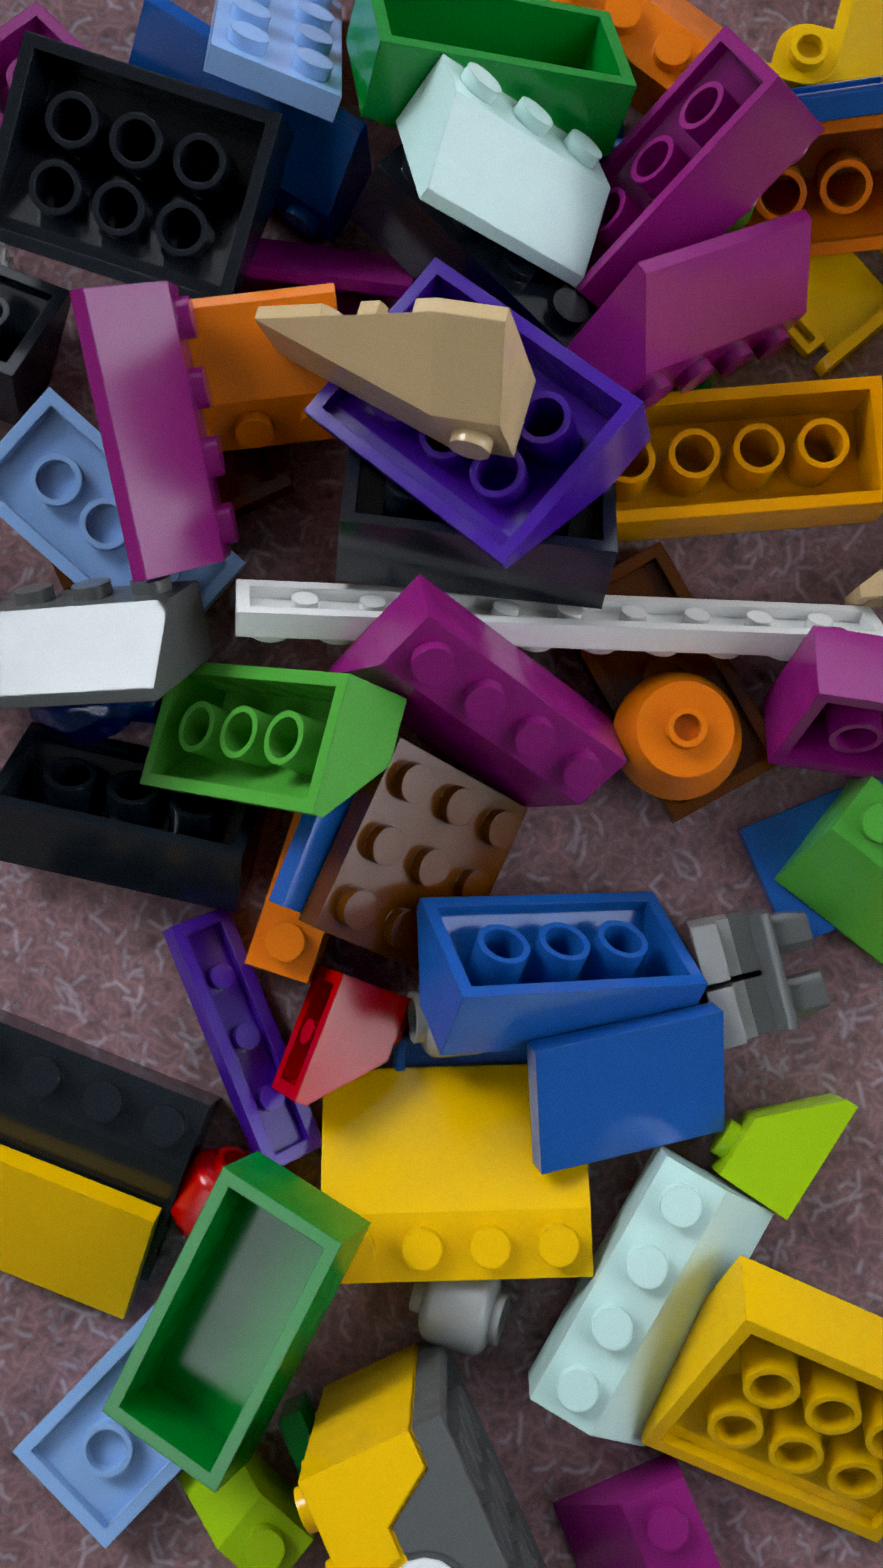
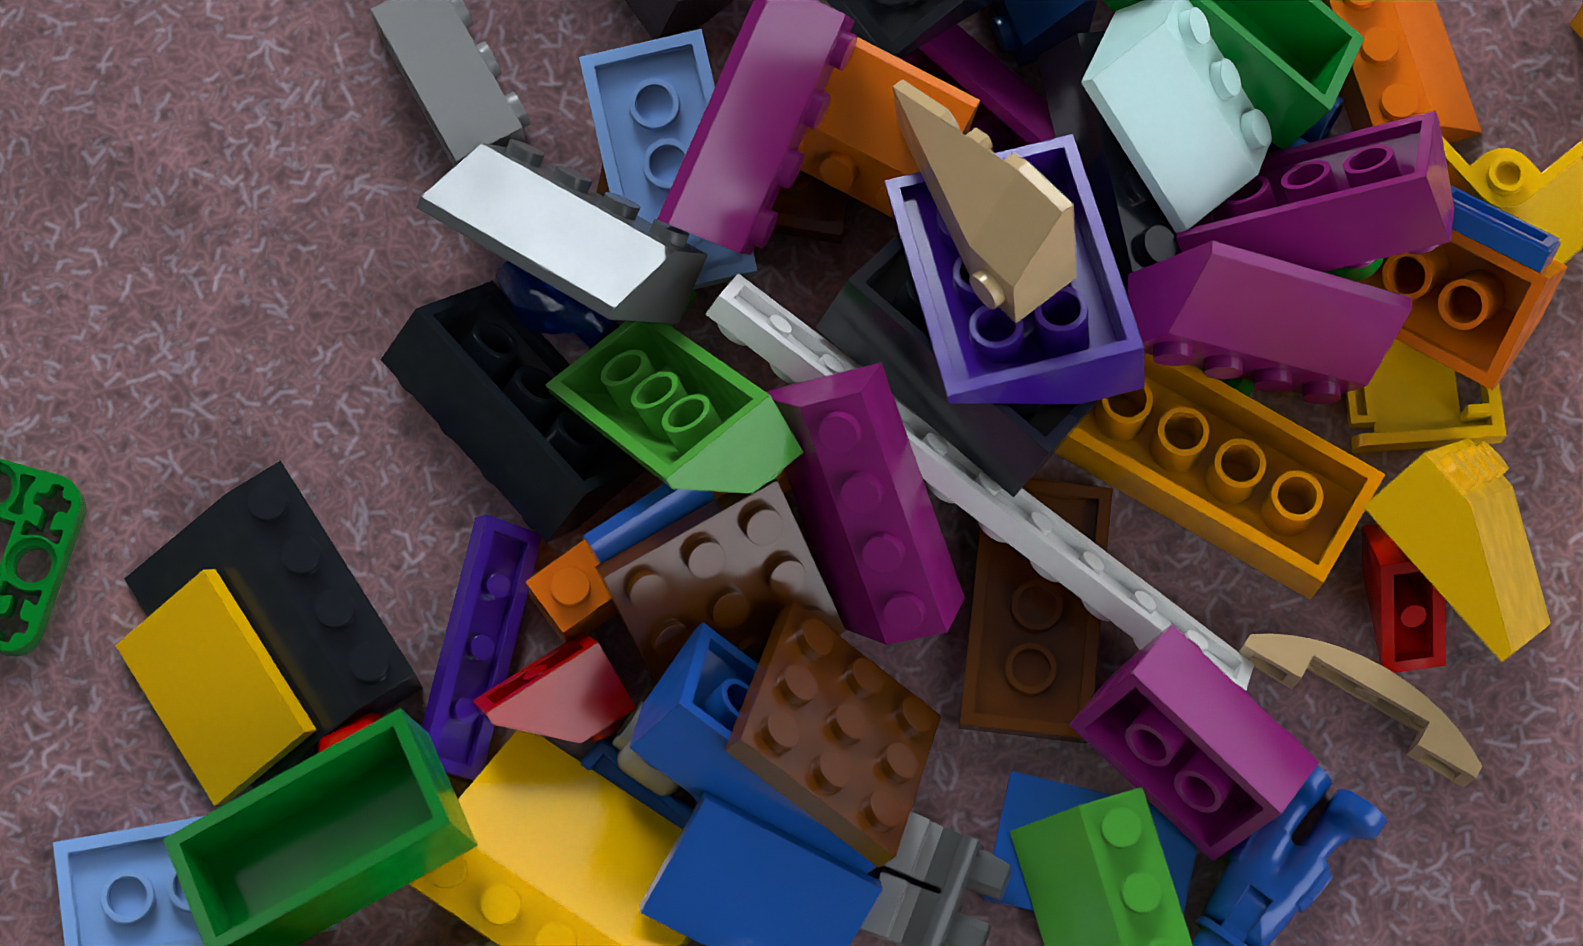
camera: 30 degrees right, 10 degrees down
(593, 914) = (834, 734): none -> reddish brown plate
(678, 735) = (1008, 650): orange cone -> none

